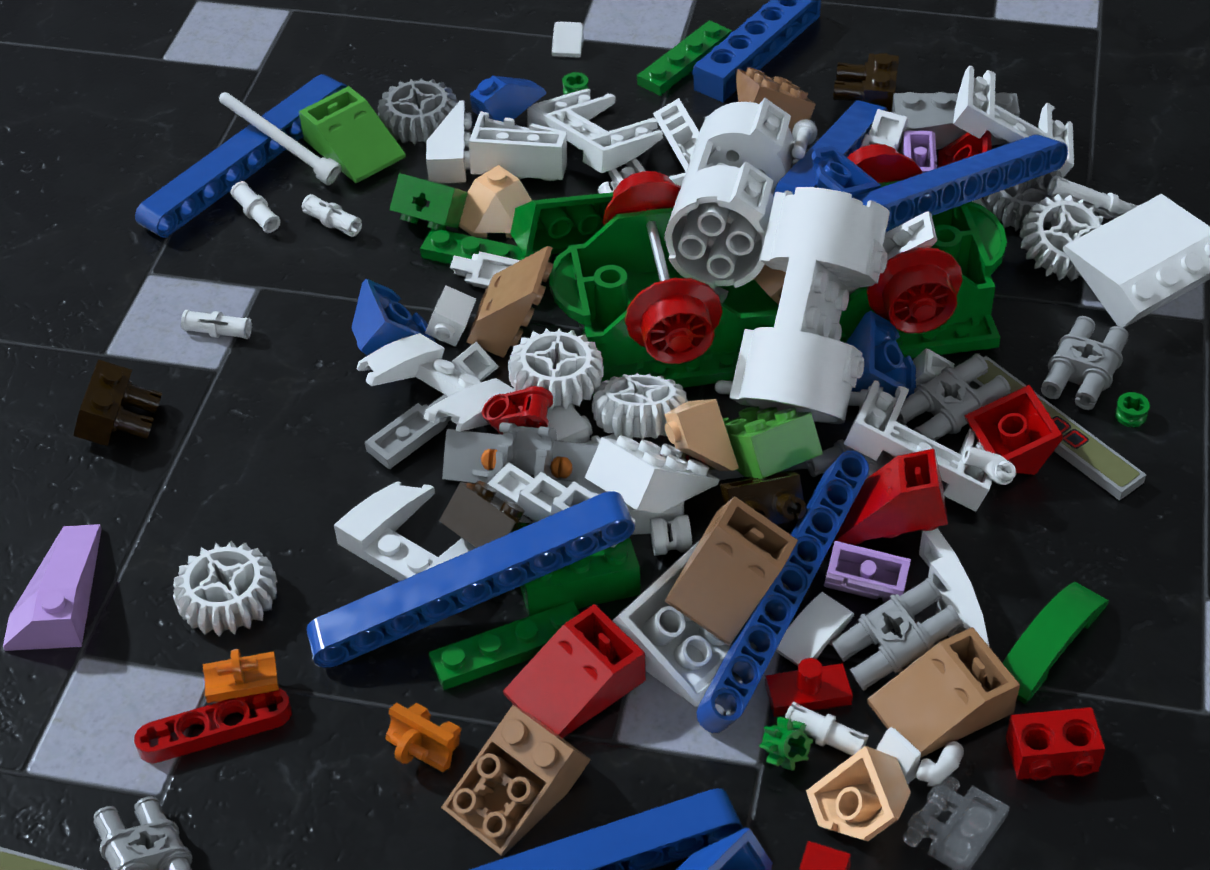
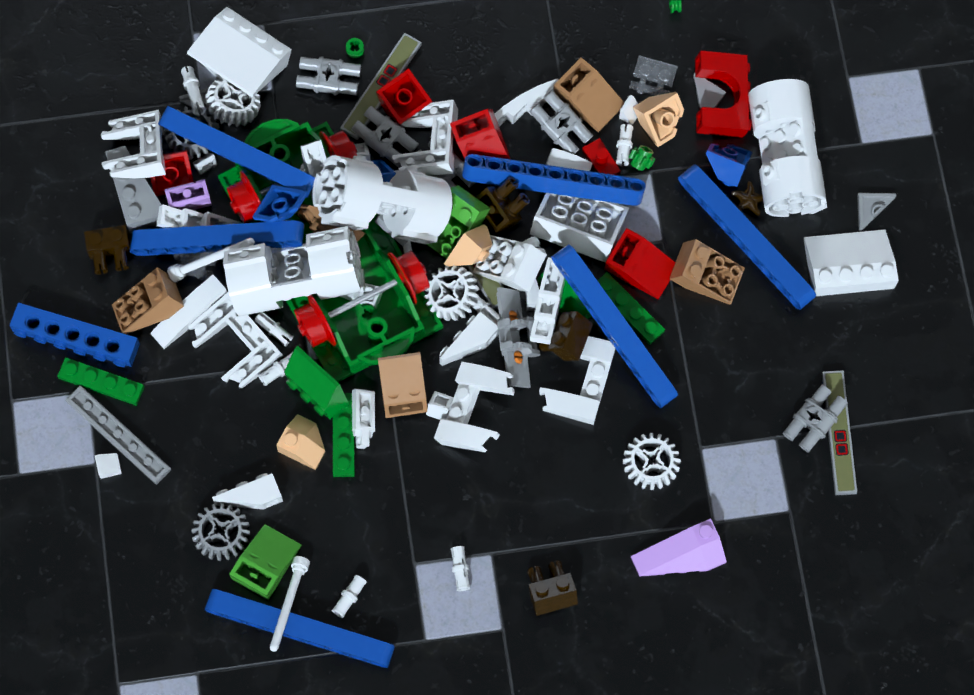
camera: 115 degrees left, 25 degrees up
(215, 730) = (727, 431): red beam -> none
(240, 676) = (704, 423): orange hips -> none
(331, 215) = (345, 530): white pin -> none
(382, 319) = (431, 460): blue slope -> none
(404, 435) = (507, 414): light grey hinge -> none
(411, 200) = (317, 480): green brick -> none
(419, 738) = (705, 324): orange hips -> none
(450, 316) = (413, 426): white brick -> none
(505, 97) = (199, 473): blue slope -> none
(519, 150) = (247, 448): white wedge -> none
(520, 407) = (489, 342): red piece -> none
(557, 362) = (458, 335): white gear -> none
(574, 82) = (159, 448): green bush -> none
(600, 148) = (229, 394): white wedge -> none
(608, 56) = (118, 435): none -> light grey tile
(679, 130) = (203, 345): white slope -> none
(731, 569) = (563, 200): medium nougat slope -> none
(866, 572) = (528, 143): lavender brick -> none
(947, 763) = (627, 87): white arm -> none
(992, 464) = (436, 100): white arm -> none
(1051, 635) = (528, 56): green slope -> none
(1055, 738) = (591, 44): red brick -> none

